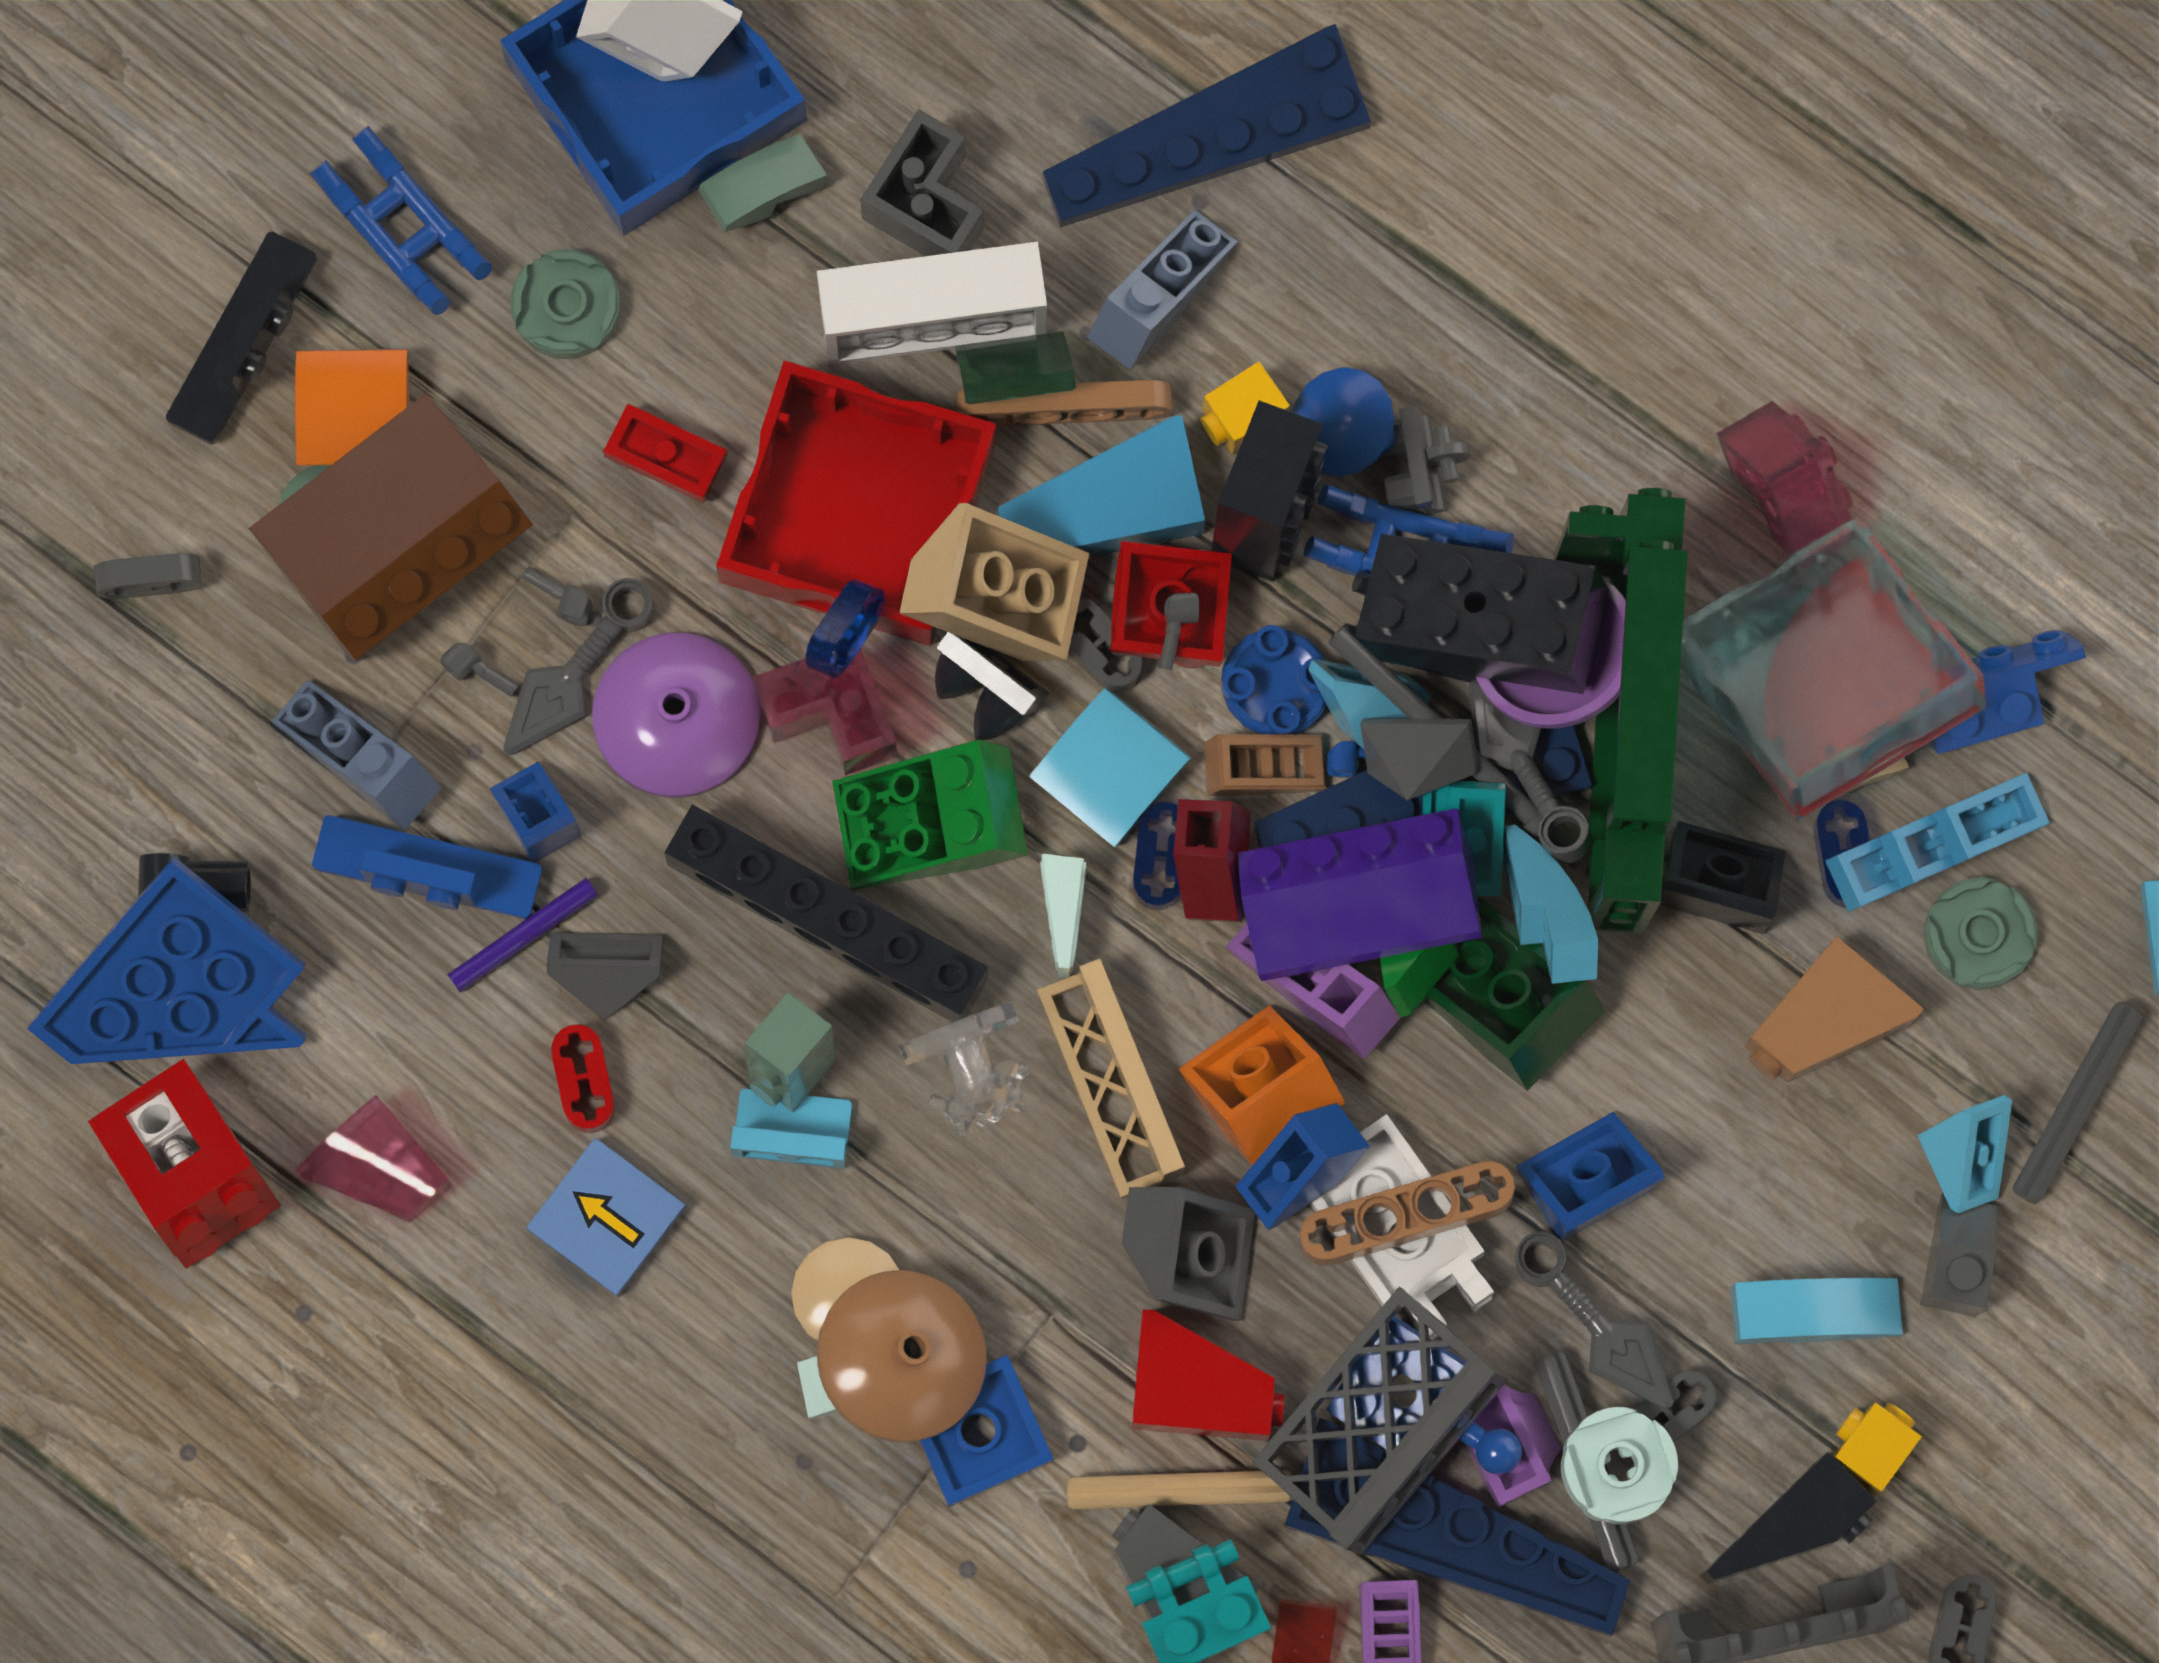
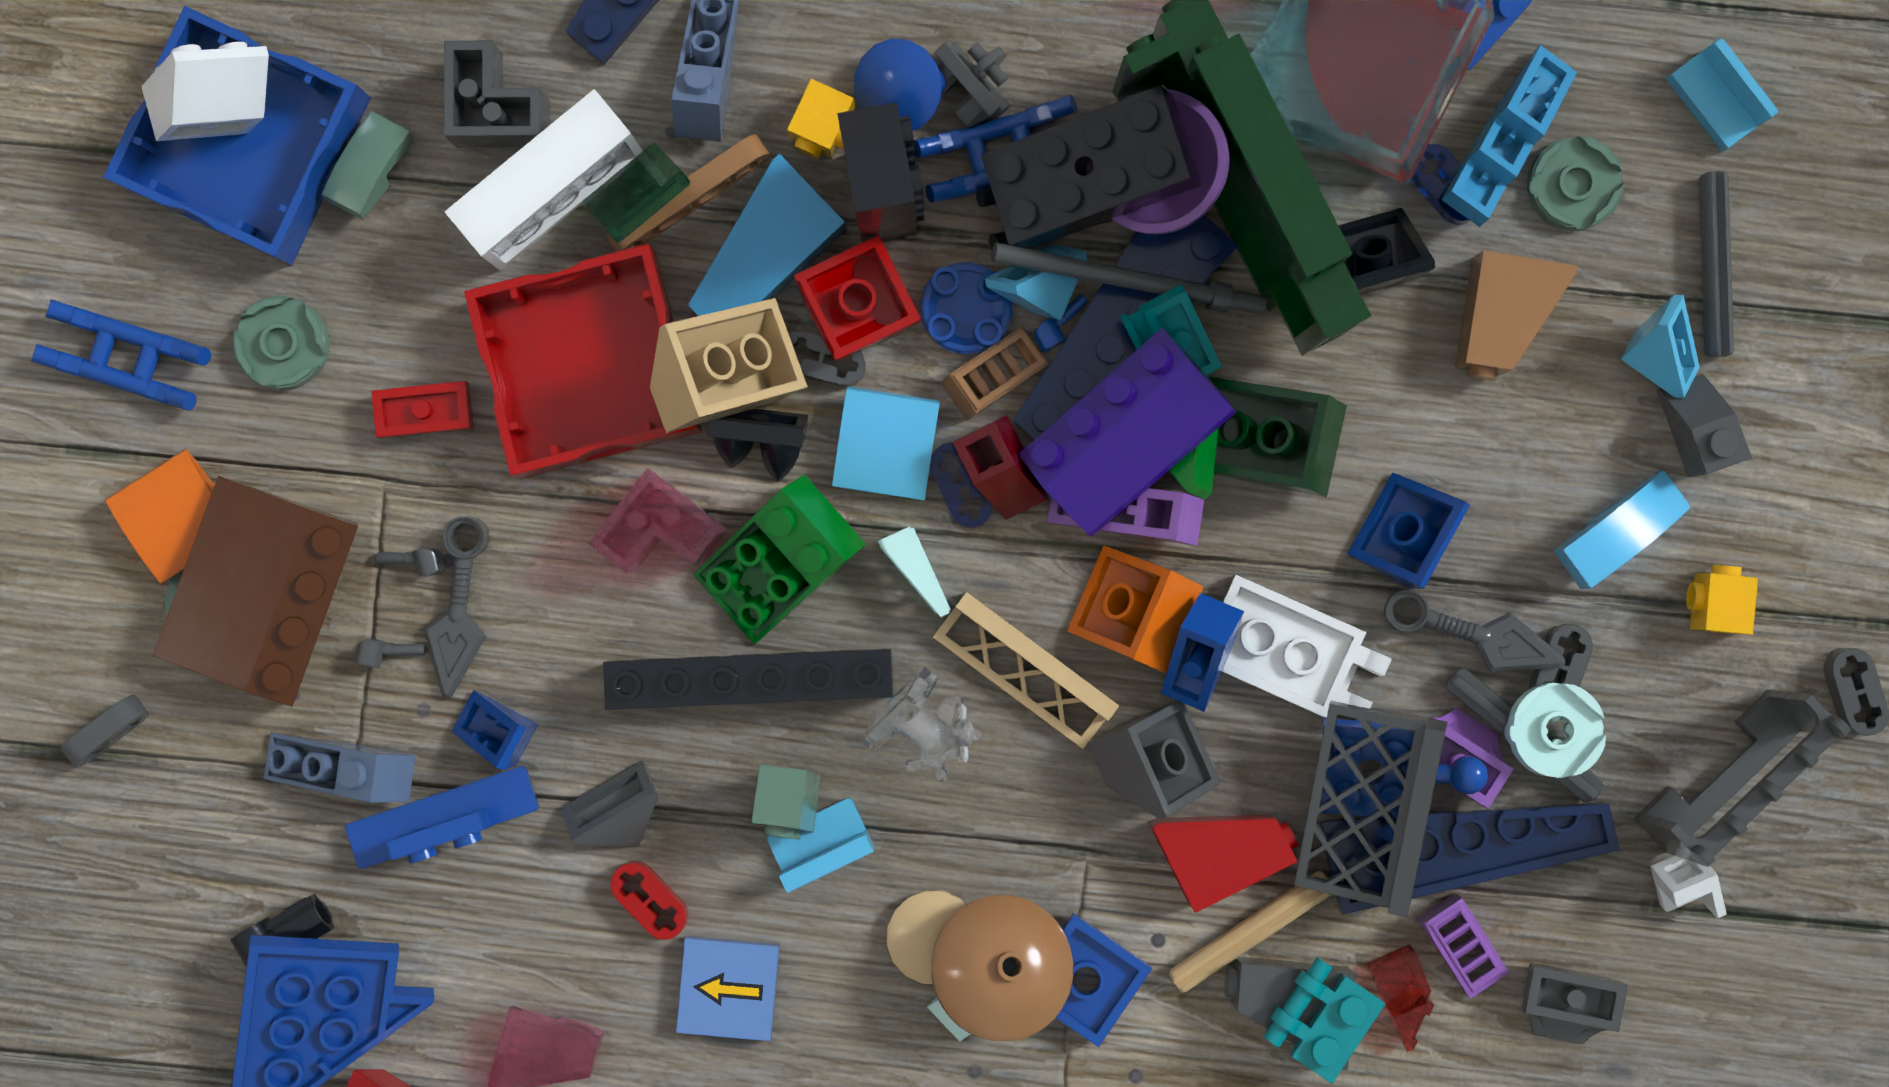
camera: 30 degrees left, 10 degrees up
(241, 338) = (61, 512): black bracket -> none
(522, 934) = (541, 822): dark purple bar -> none
(682, 751) = (583, 601): medium lavender dish -> none
(845, 628) = (633, 467): clear blue beam -> none
(1178, 609) = (867, 301): dark grey hand -> none
(1404, 1204) = (1293, 637): medium nougat beam -> none
(1419, 753) = (1106, 302): dark grey slope -> none
(1512, 747) = (1167, 253): dark grey piece -> none
(1549, 909) = (1269, 359): medium azure slope -> none
(1805, 1518) = (1702, 684): black slope -> none

